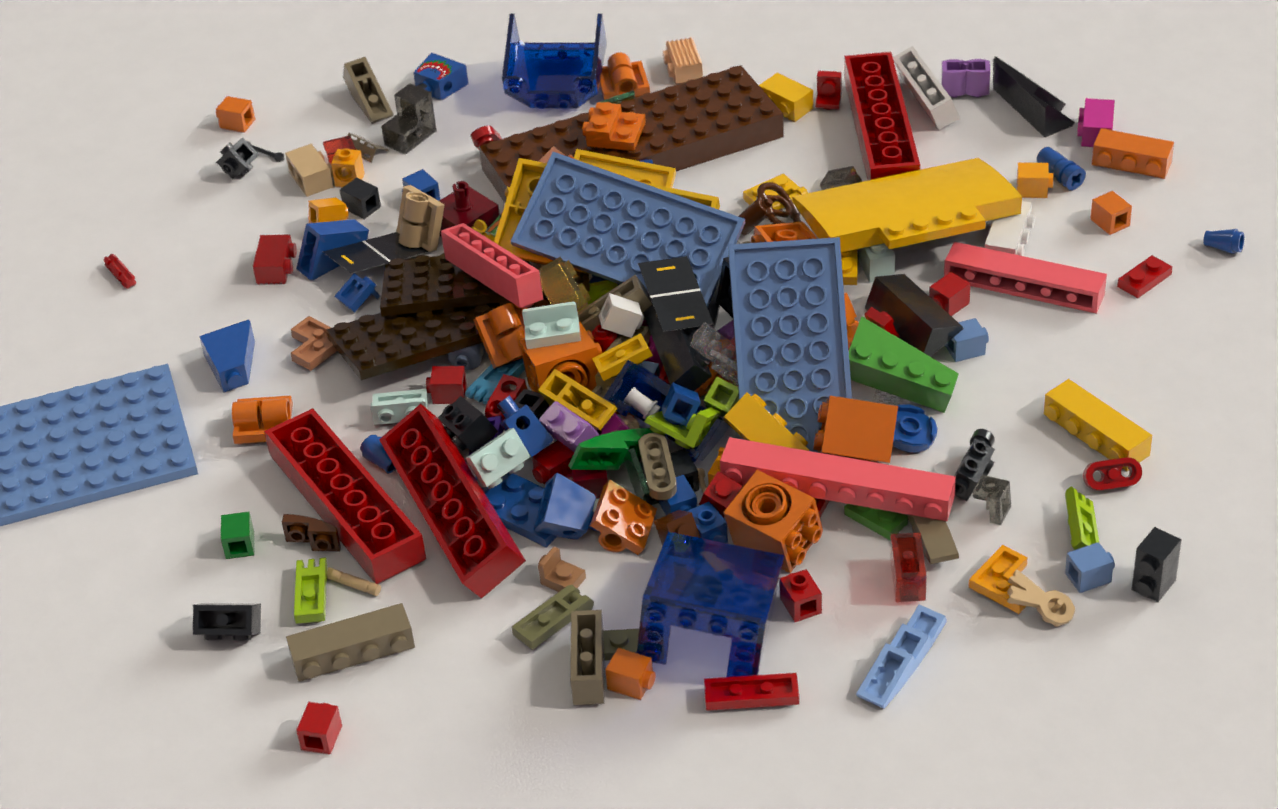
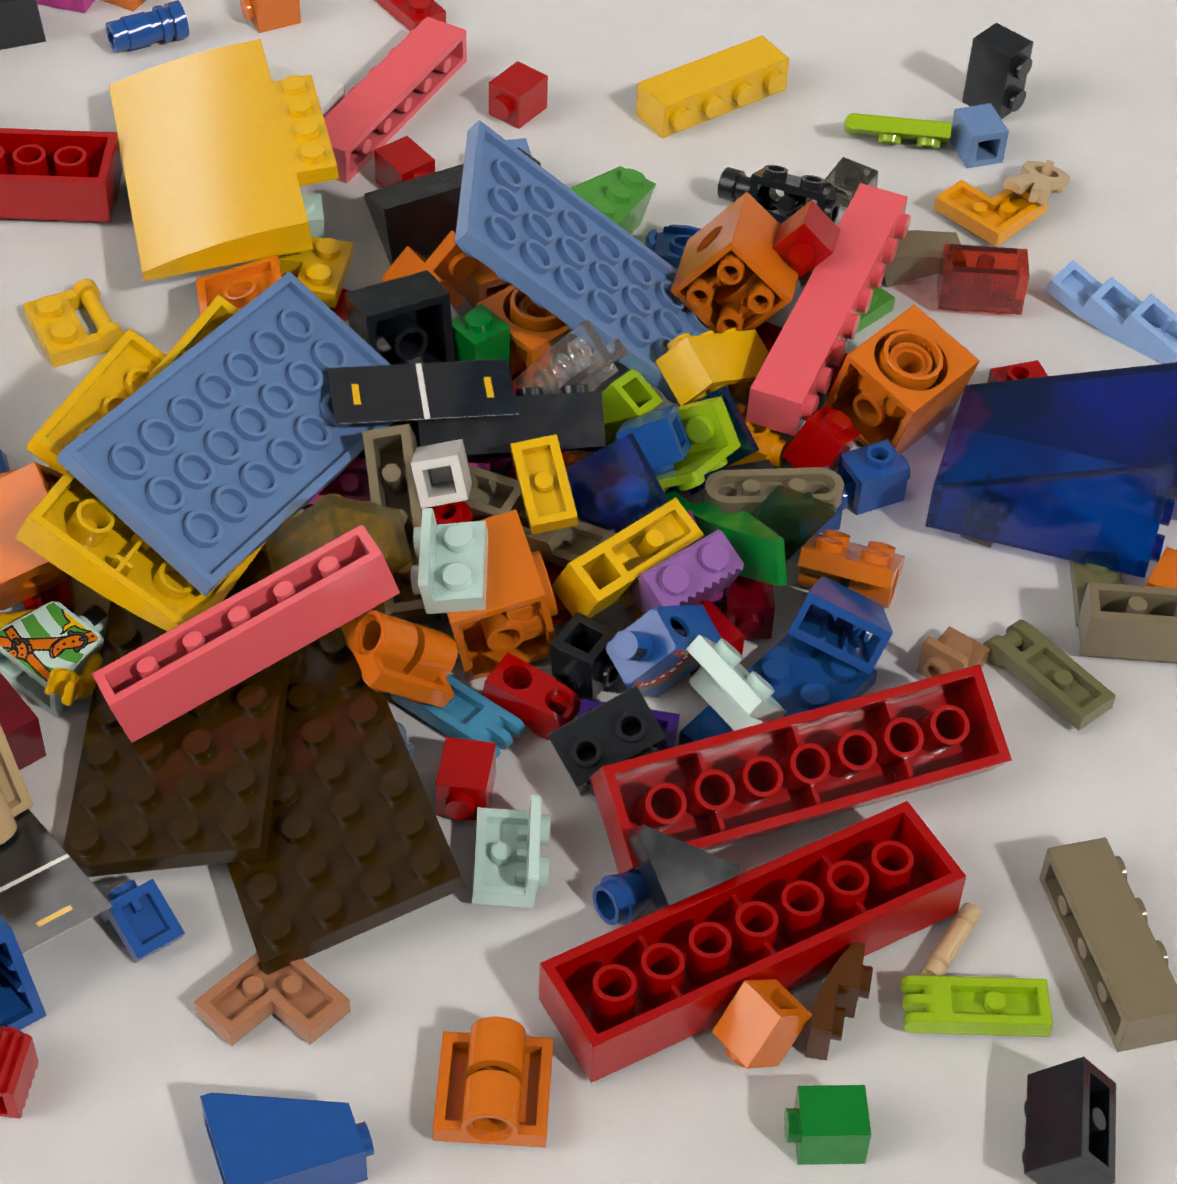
camera: 90 degrees left, 5 degrees up
(290, 499) = (761, 1024): none -> orange brick
(373, 447) = (674, 867): none -> black slope
(676, 522) = (889, 500): reddish brown brick -> none
(762, 208) = (146, 312): reddish brown piece -> none
(840, 177) = (77, 241): clear smoke bracket -> none
(874, 446) = (806, 238): none -> red brick
(1034, 180) = (163, 46): light orange brick -> none
(1049, 333) = (518, 94): none -> red brick
(1111, 473) = (808, 91): red plate -> none

